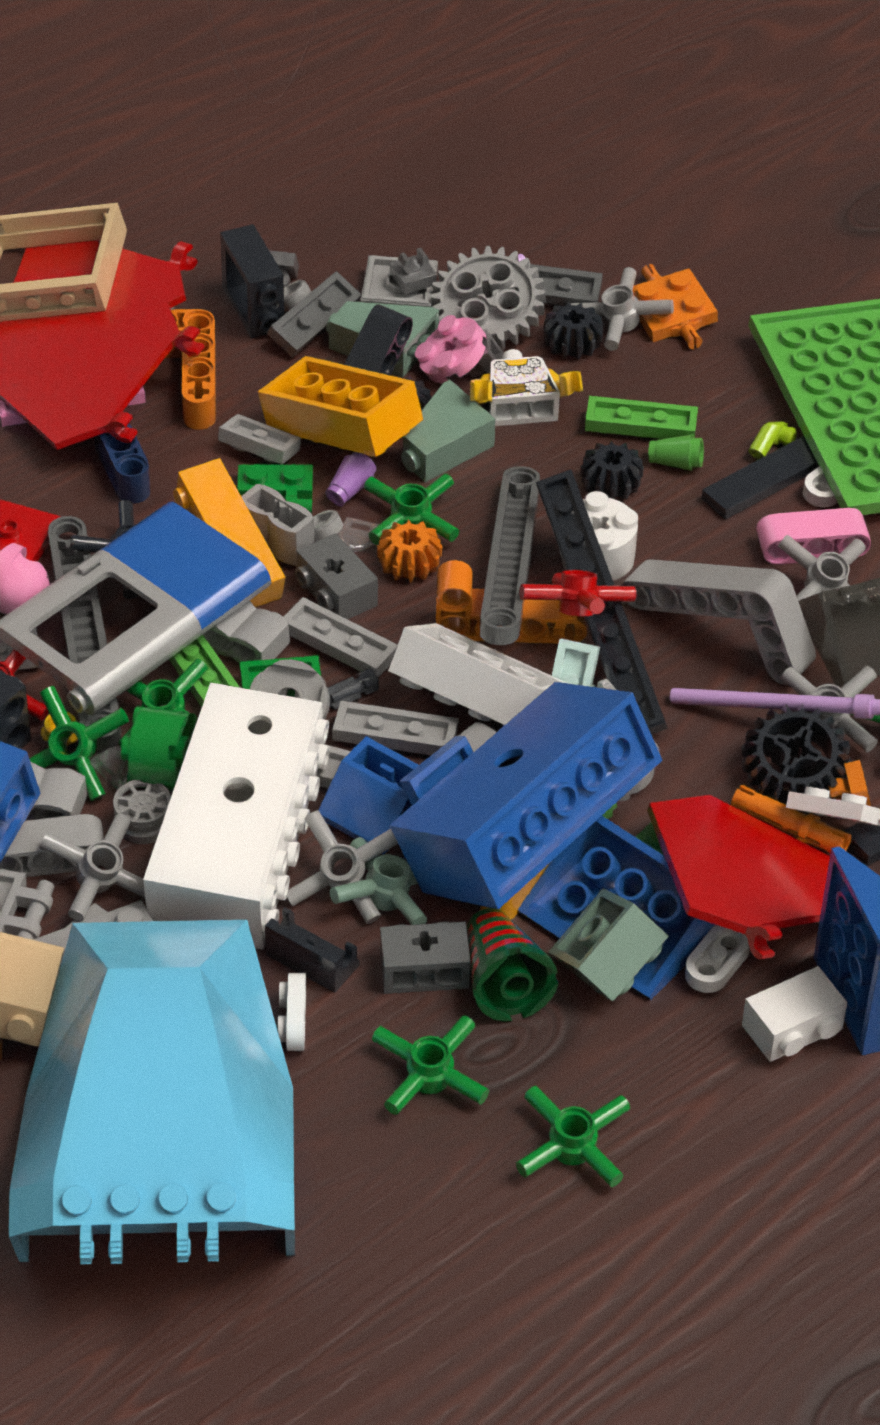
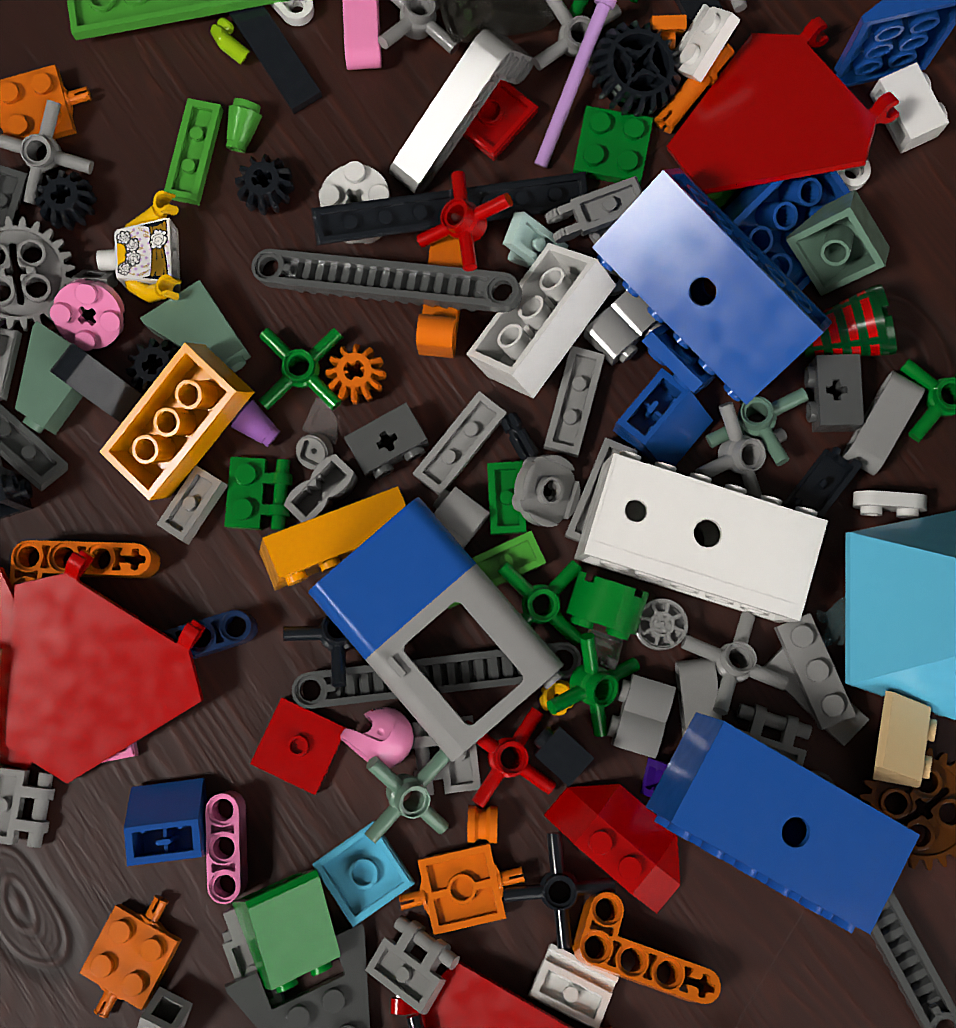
camera: 75 degrees left, 35 degrees up
(391, 1002) = (884, 422): none -> light grey beam
(704, 756) = (612, 145): none -> green plate
(720, 649) = (500, 120): none -> red plate

